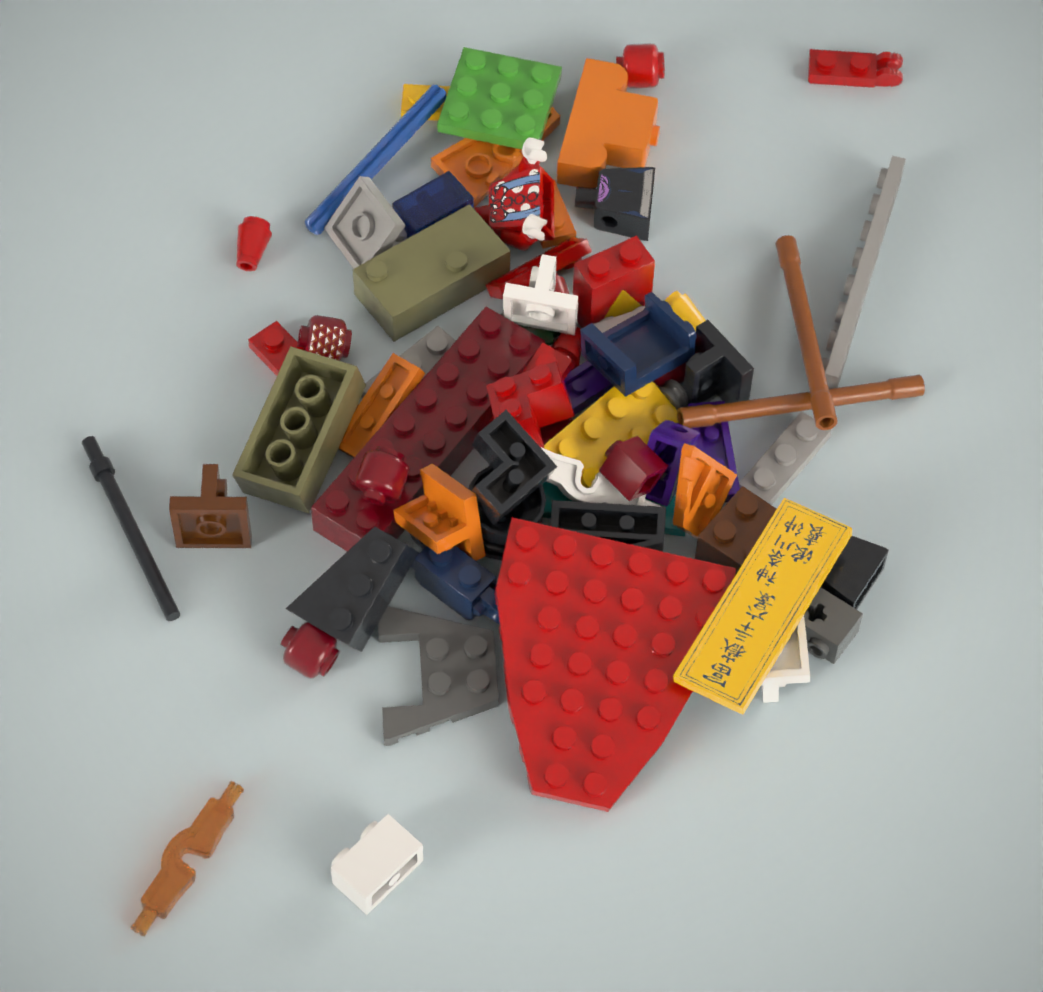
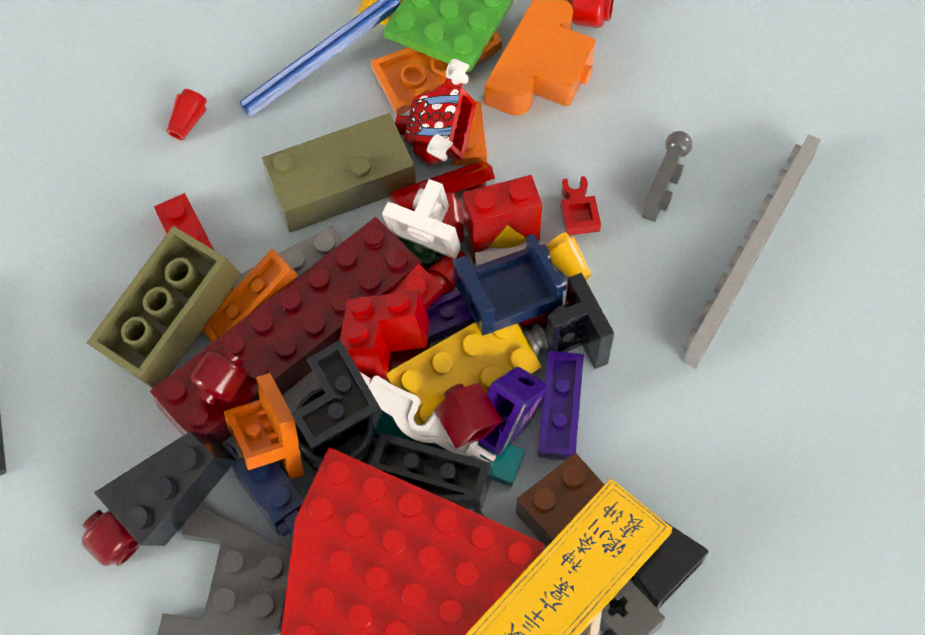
camera: 15 degrees right, 5 degrees up
(211, 518) = (56, 379): reddish brown bracket -> none
(325, 337) = (220, 221): dark red head -> none
(365, 224) = (291, 114): light grey bracket -> none
(432, 203) = (357, 105): clear blue brick -> none
(620, 201) = (537, 133): black torso -> none
(682, 270) = (579, 212): none -> red plate
(700, 490) = (531, 449): orange wing -> none
(710, 414) = (659, 370): dark orange piece -> none
(765, 190) = (677, 145): none -> dark grey plate
(785, 458) = (629, 427): light grey plate -> none
(821, 399) = (677, 376): dark orange piece -> none
(854, 68) = (793, 41): red hinge -> none

